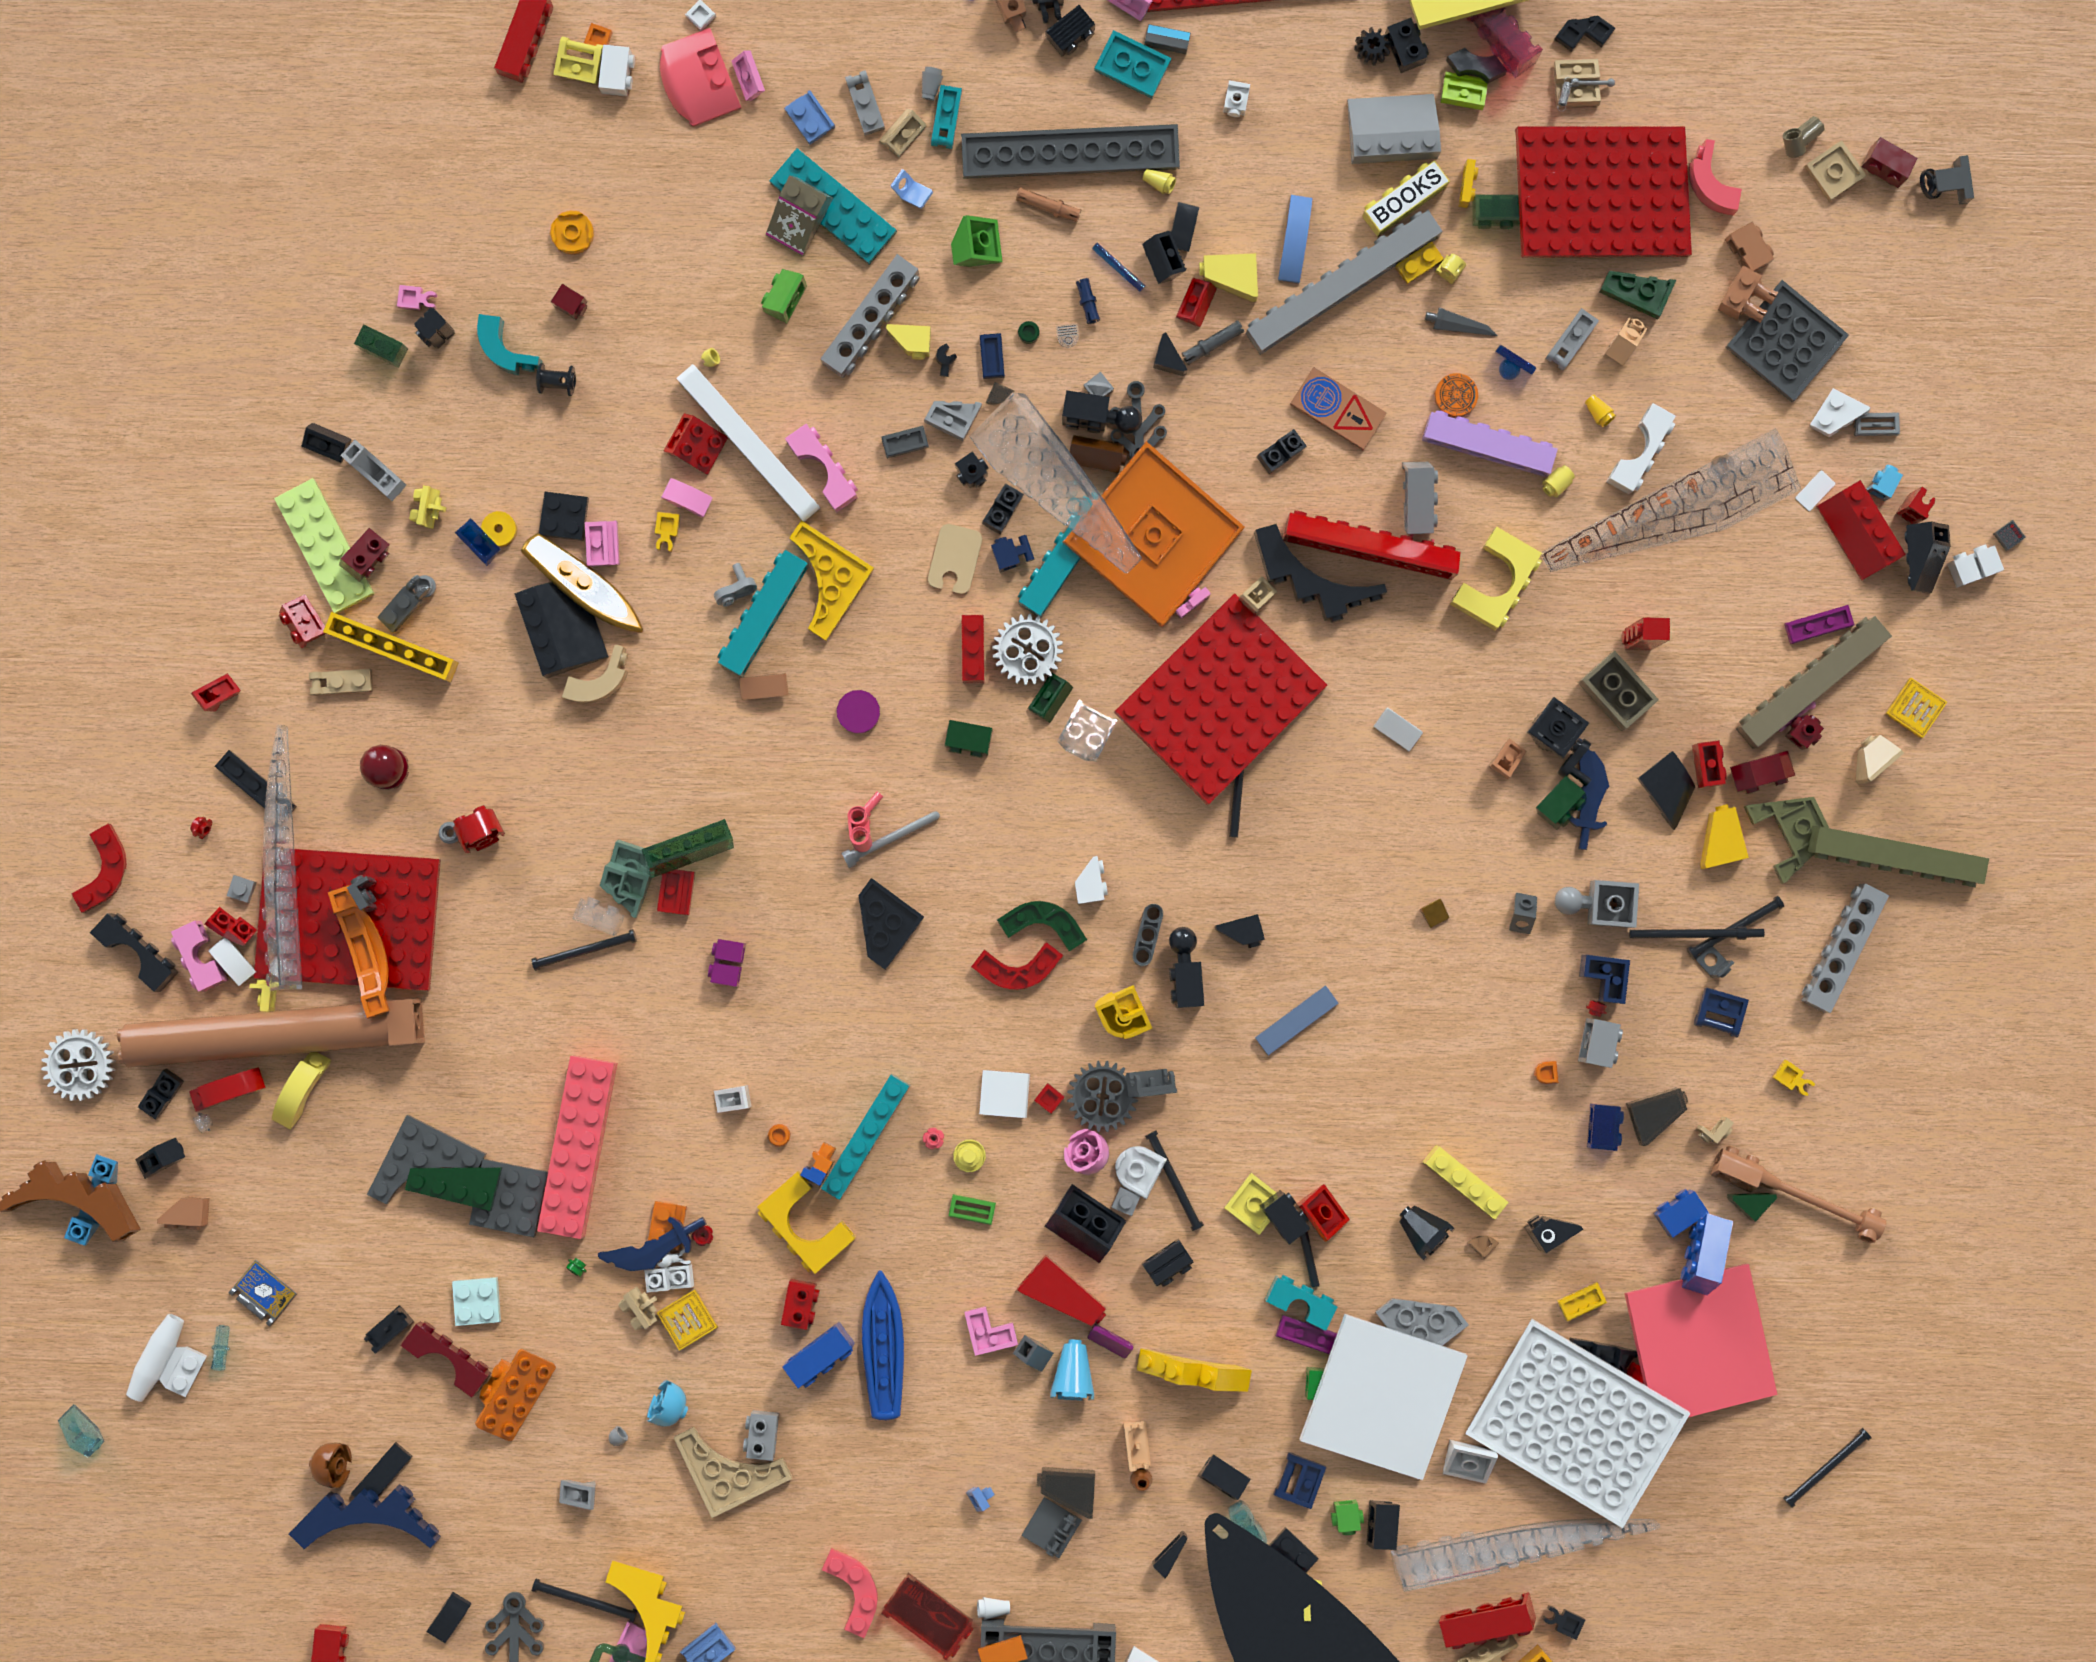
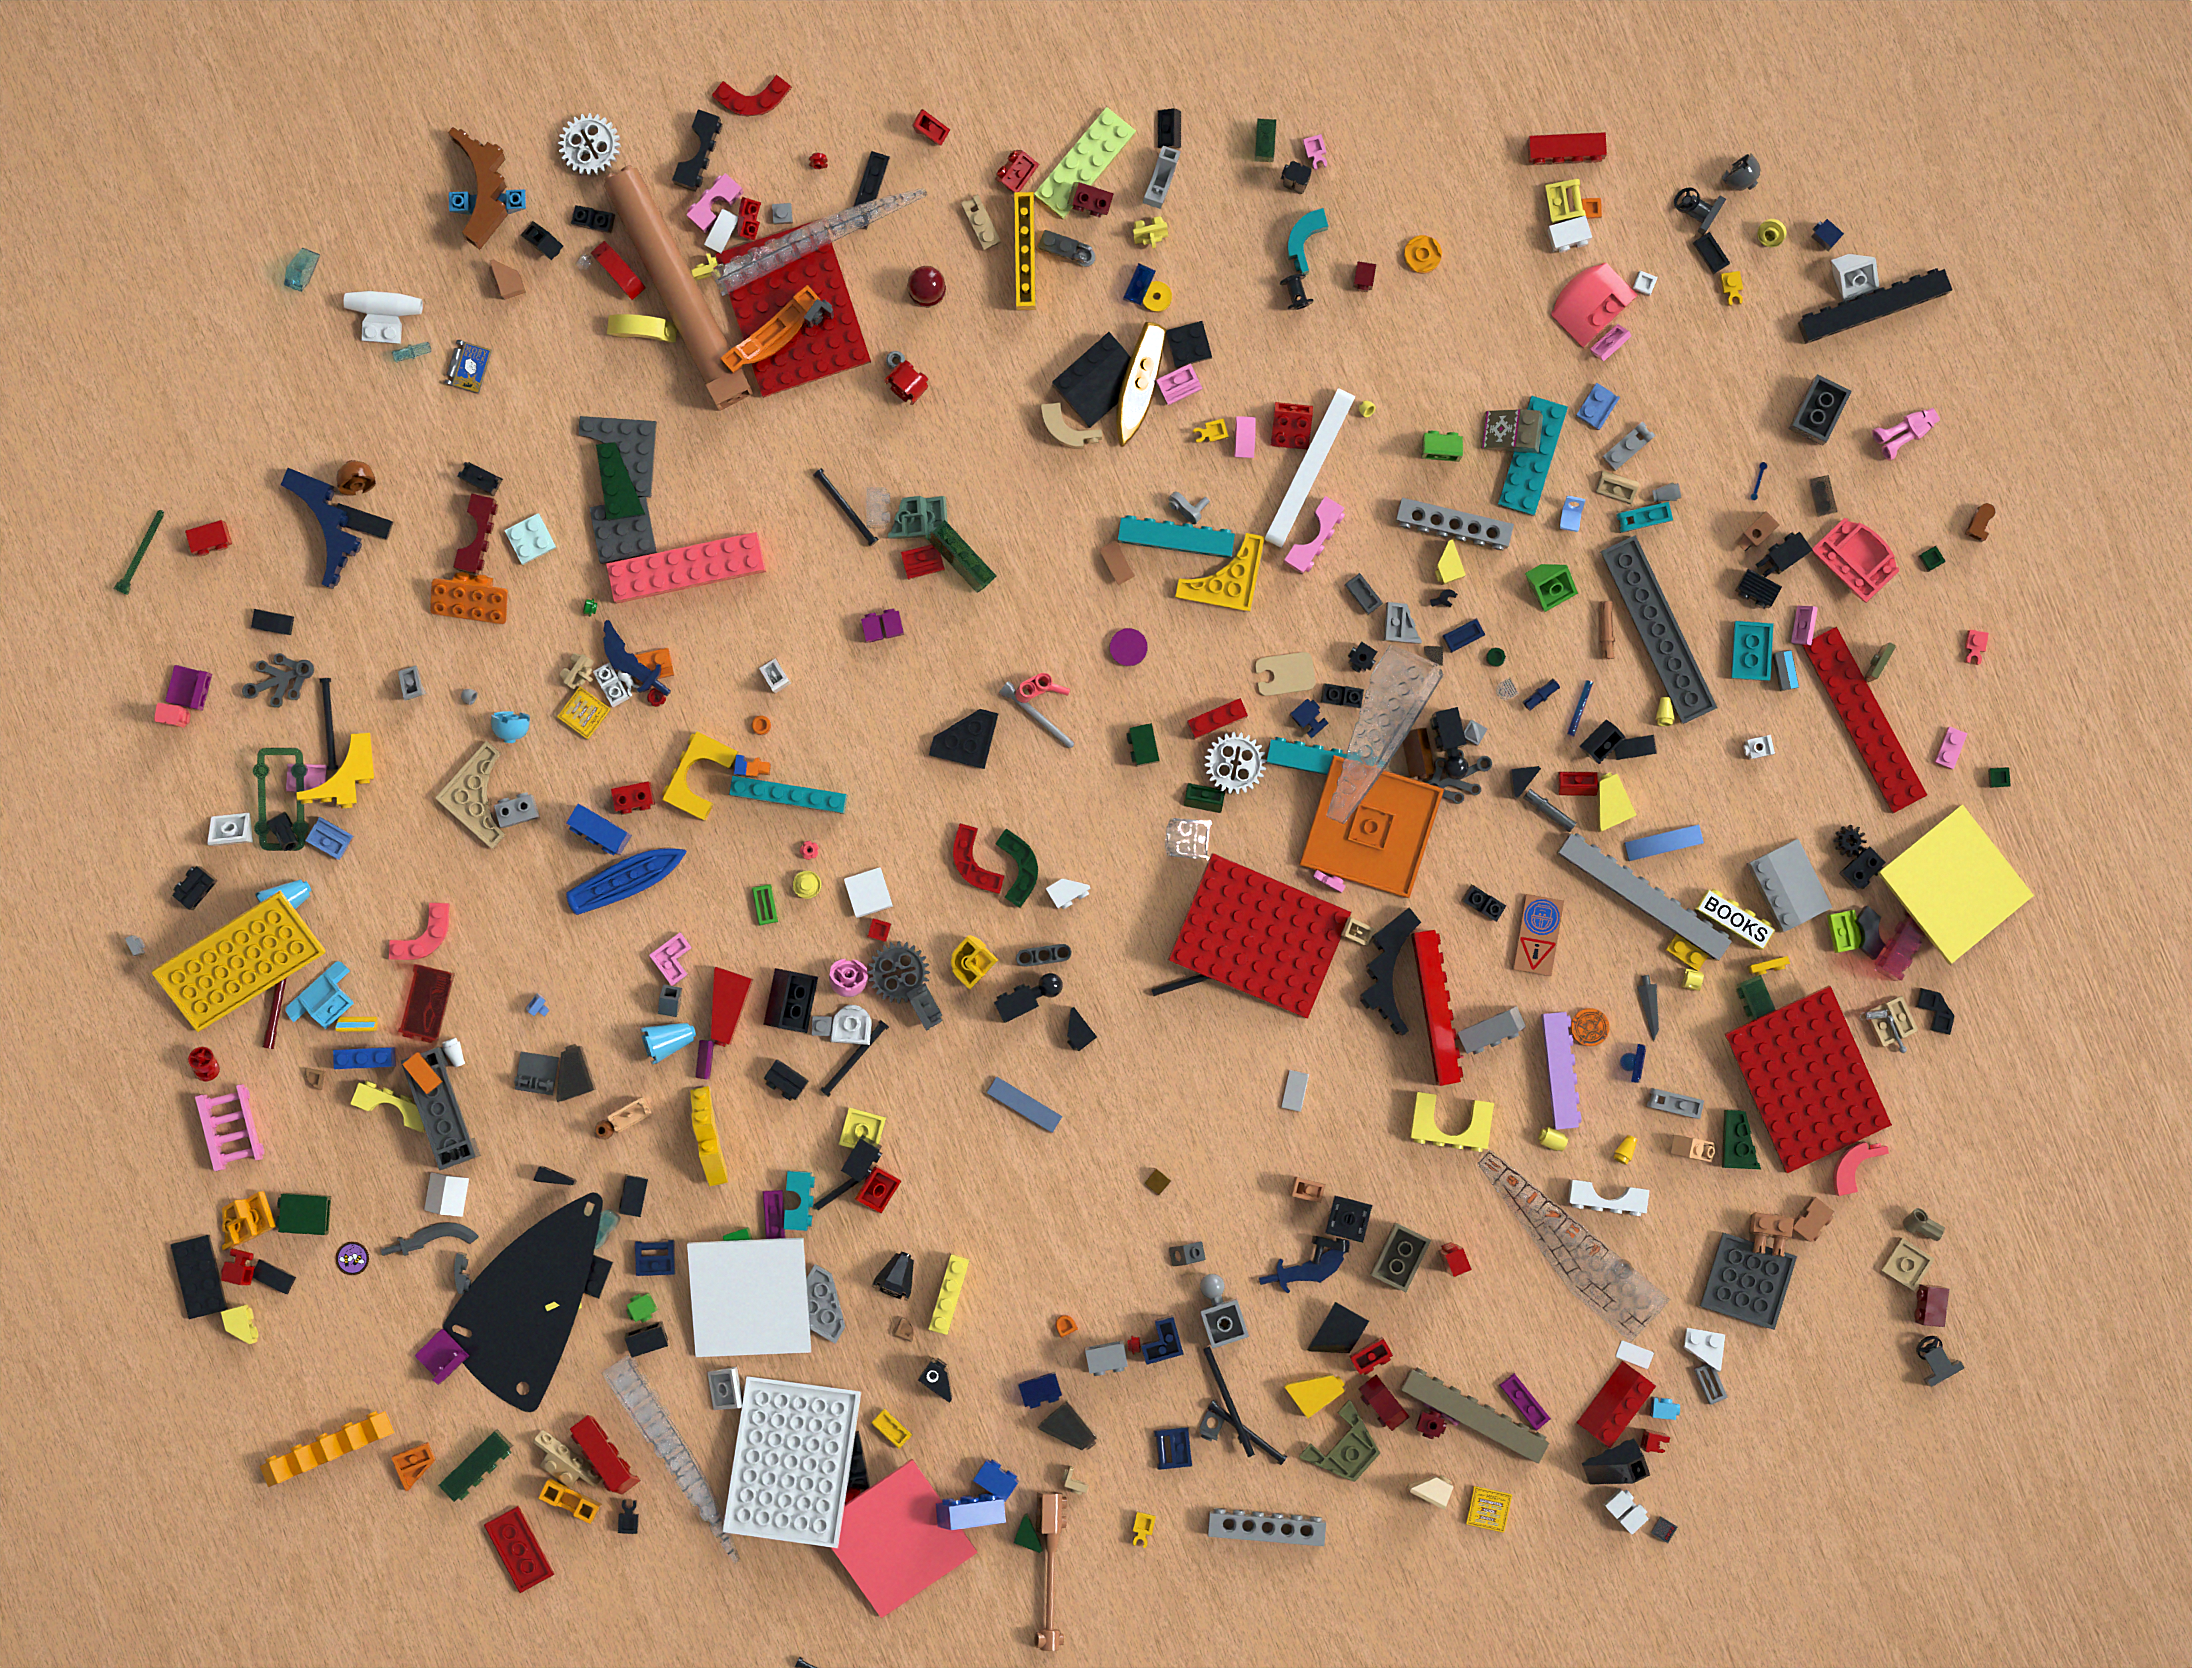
camera: 70 degrees right, 0 degrees up
(1562, 803) = (1289, 1248): dark green brick -> none
(1898, 855) = (1360, 1541): olive brick -> none

